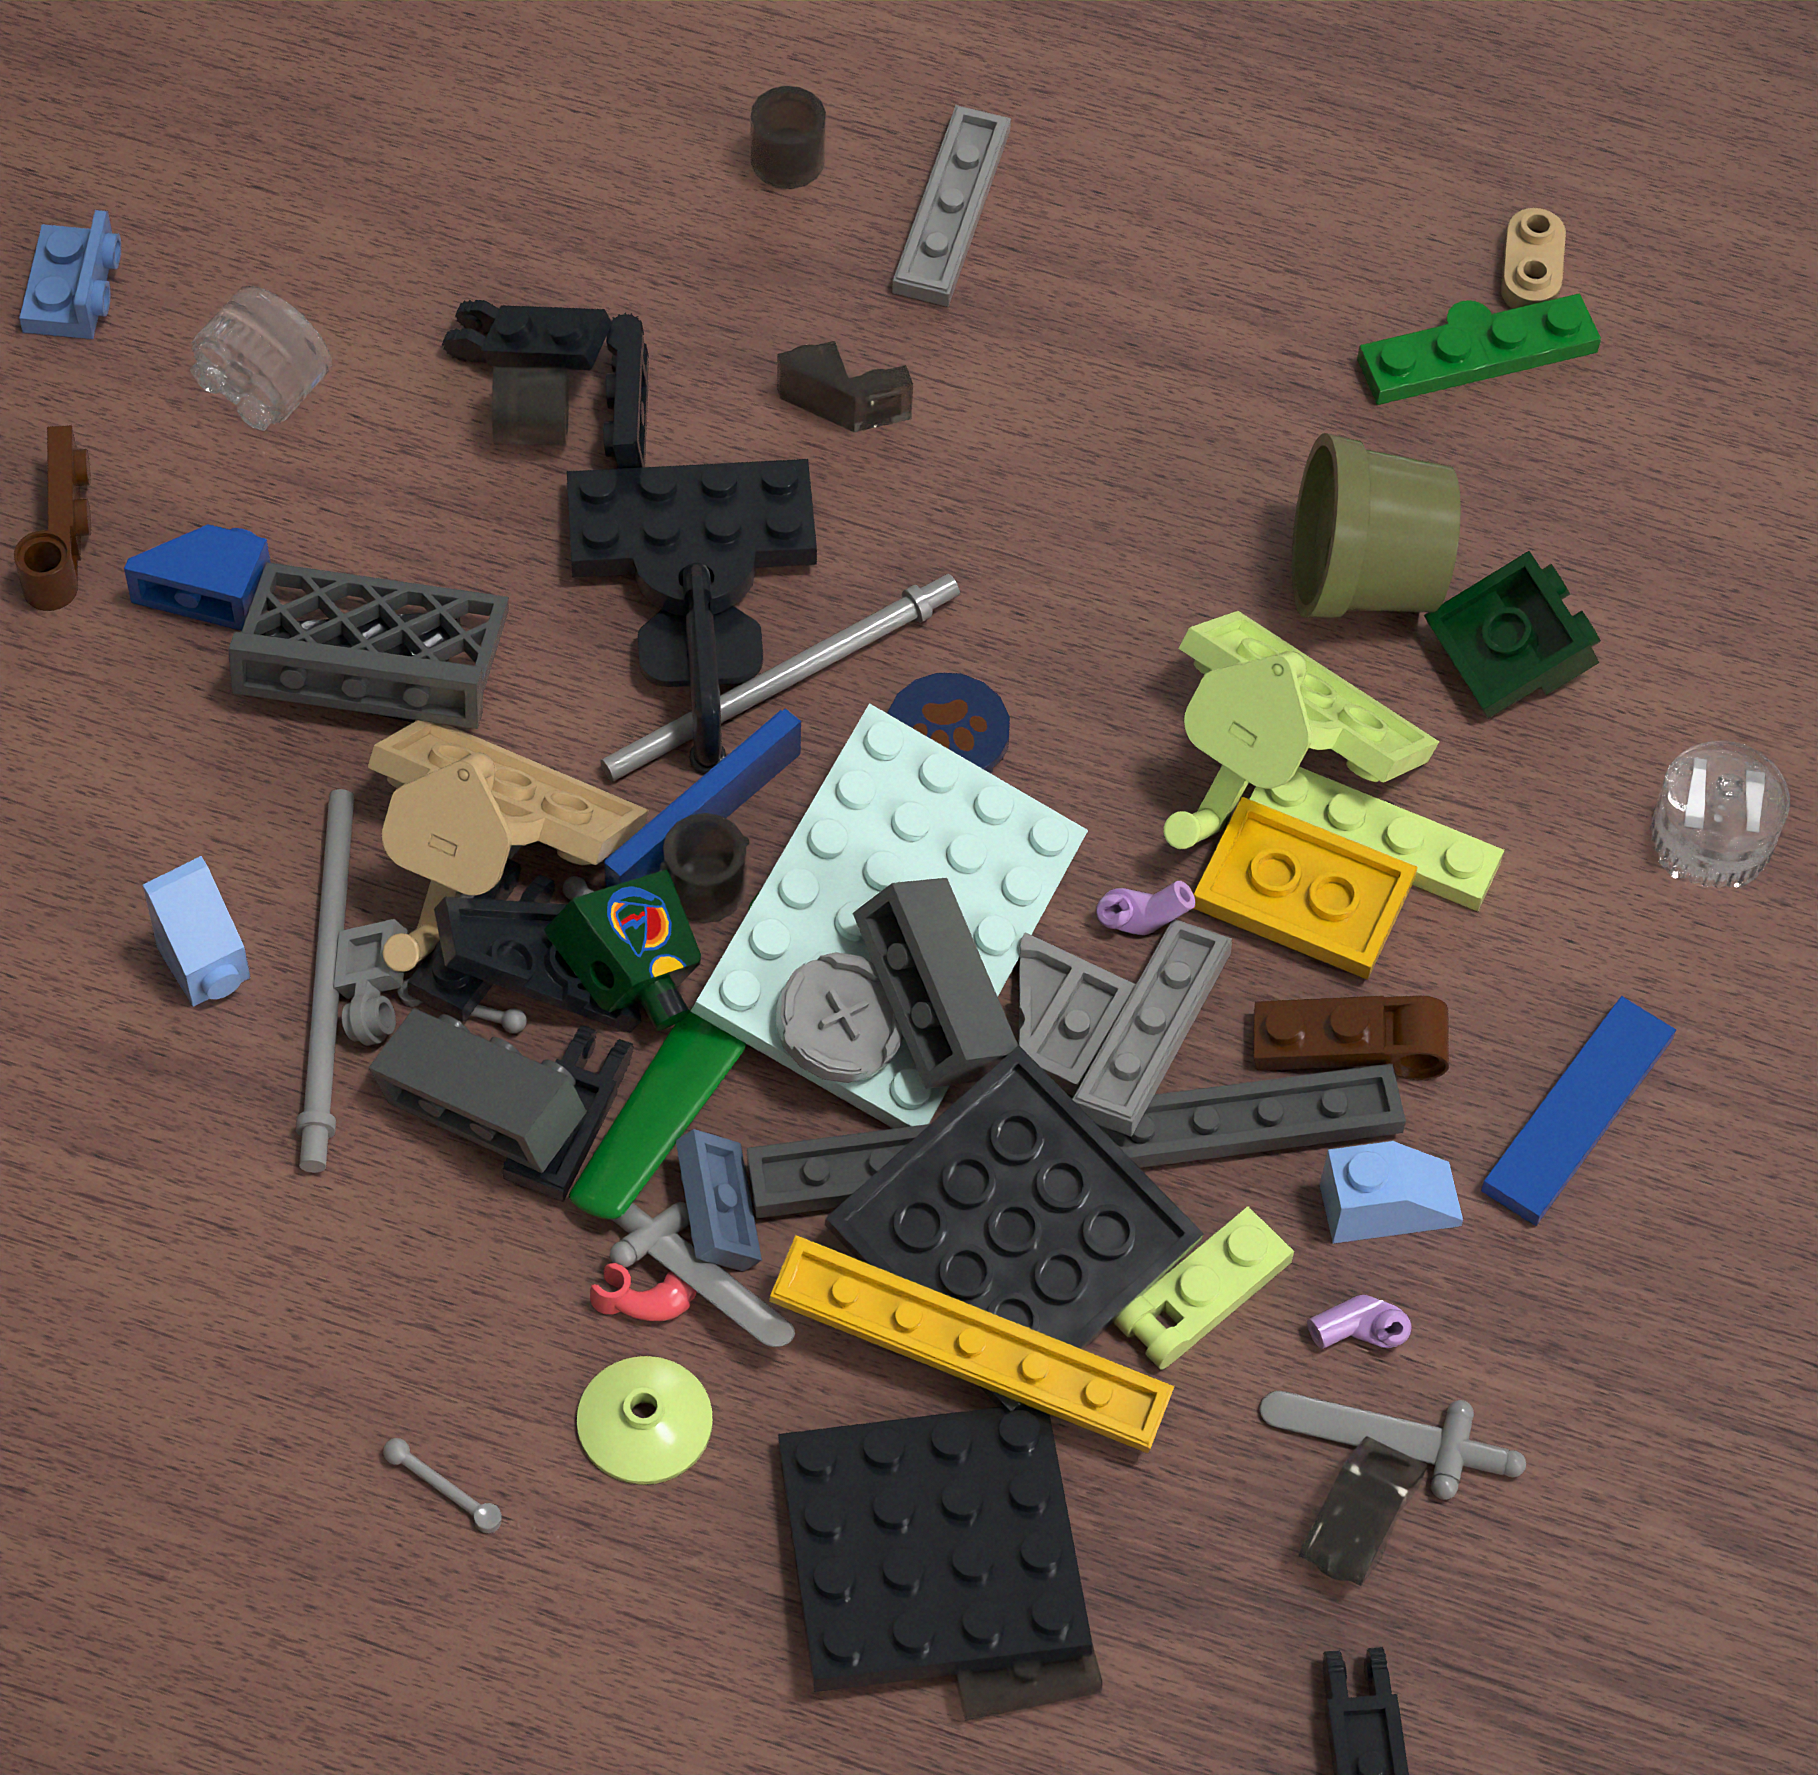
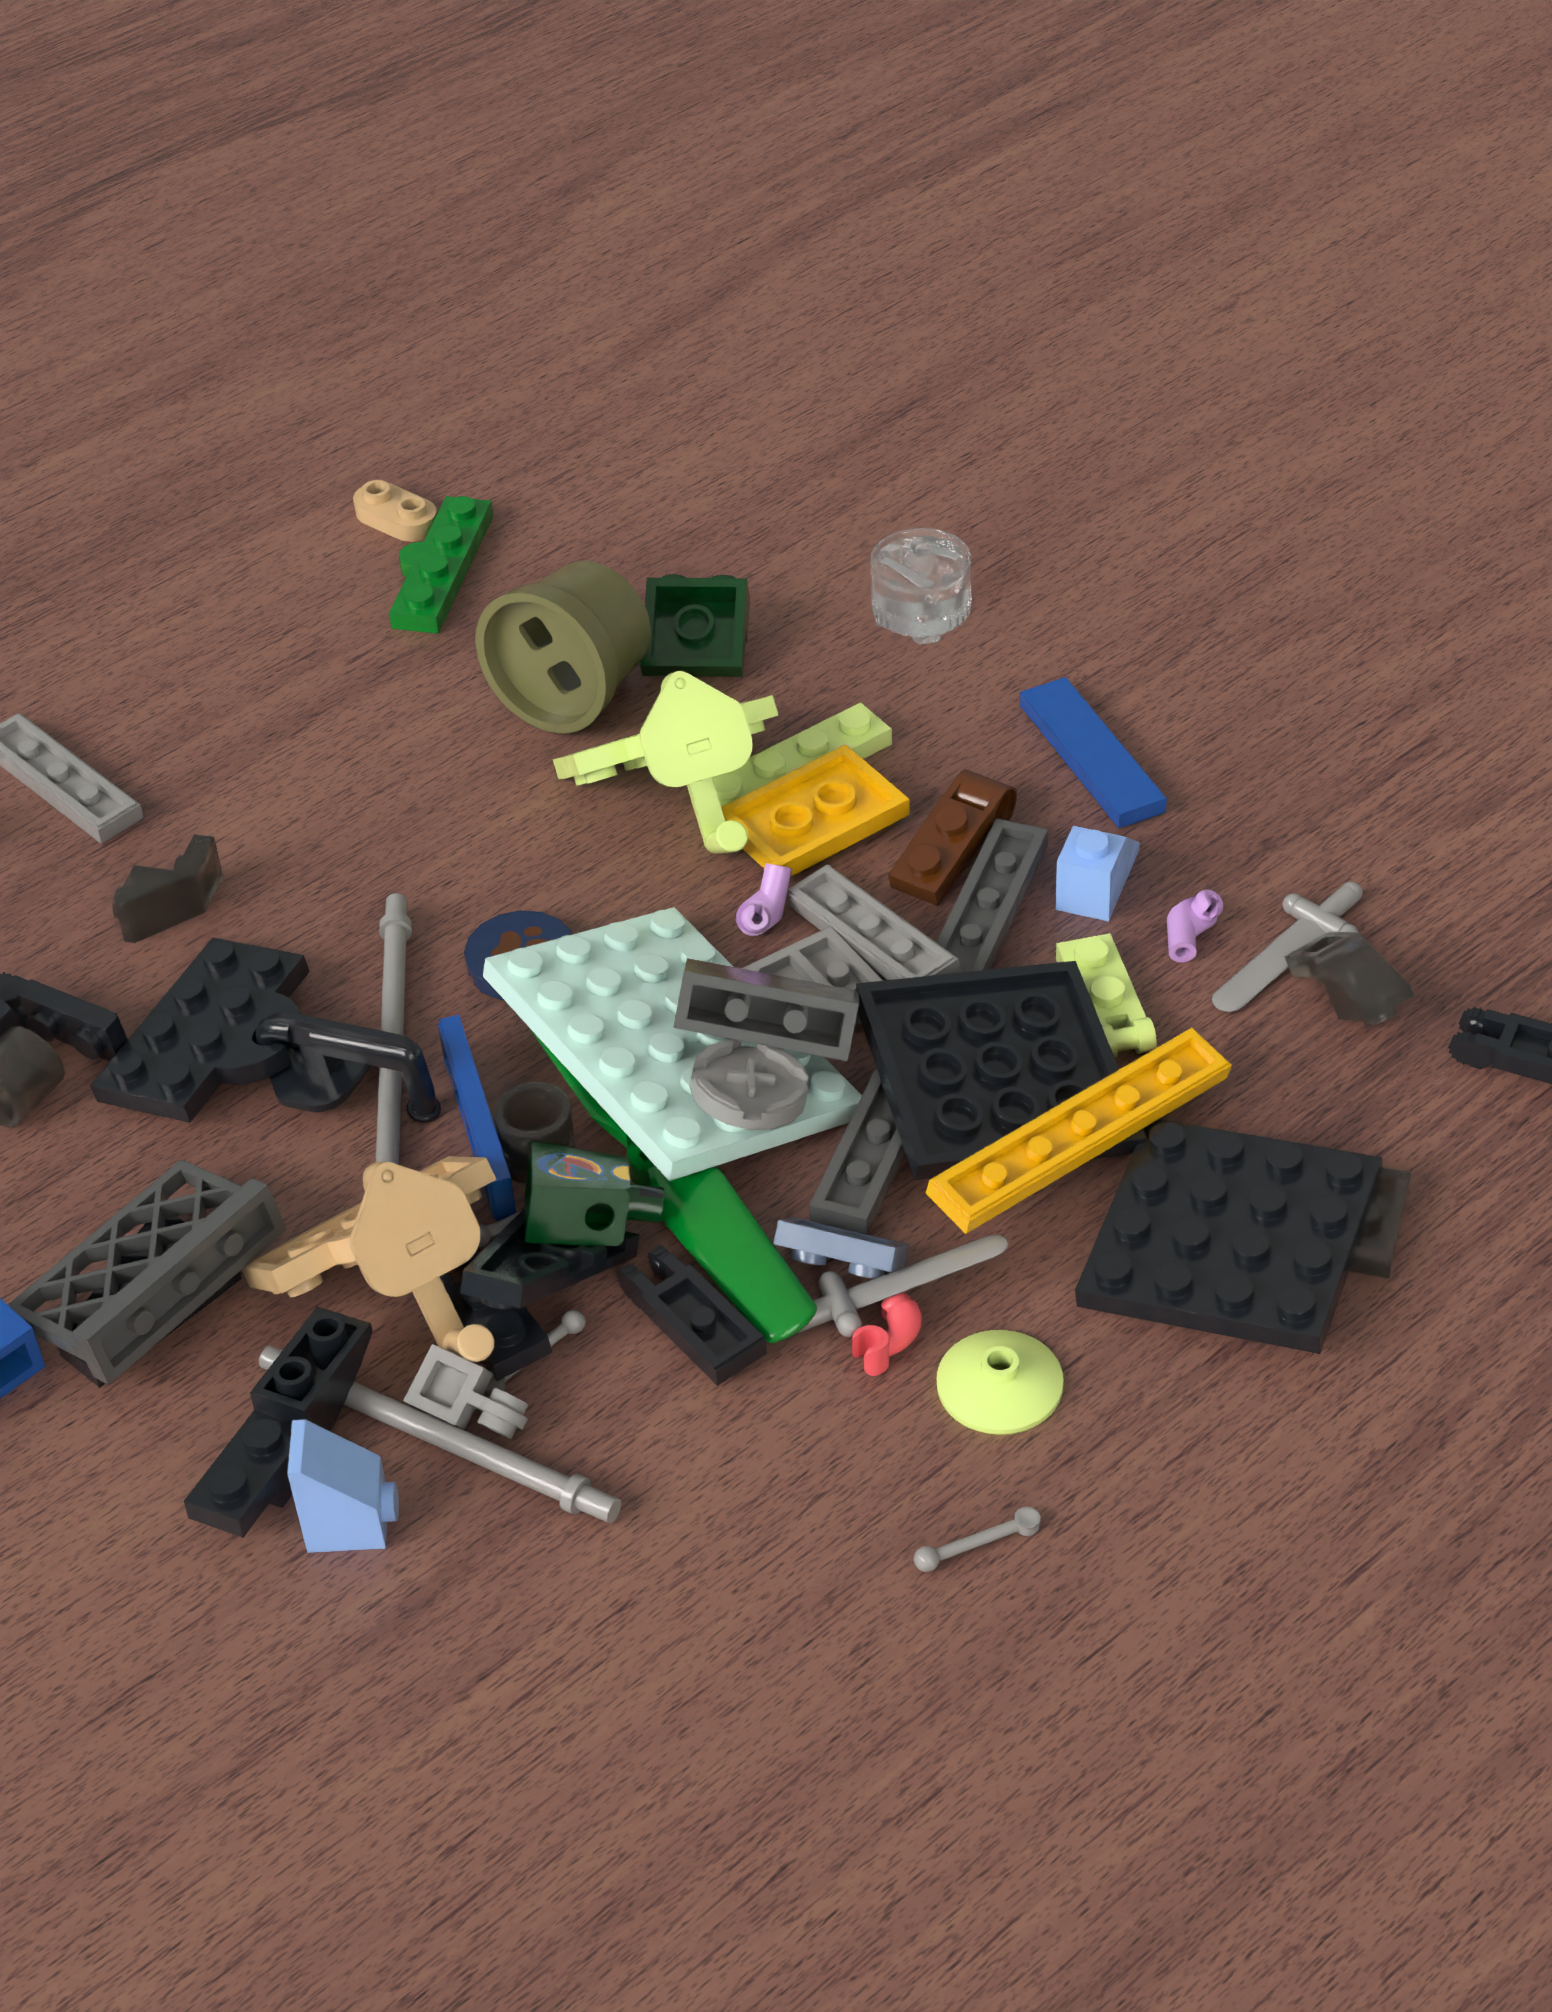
camera: 55 degrees left, 15 degrees down
(262, 857) = (302, 1383): none -> black slope
(479, 1088) = (638, 1348): dark grey brick -> none

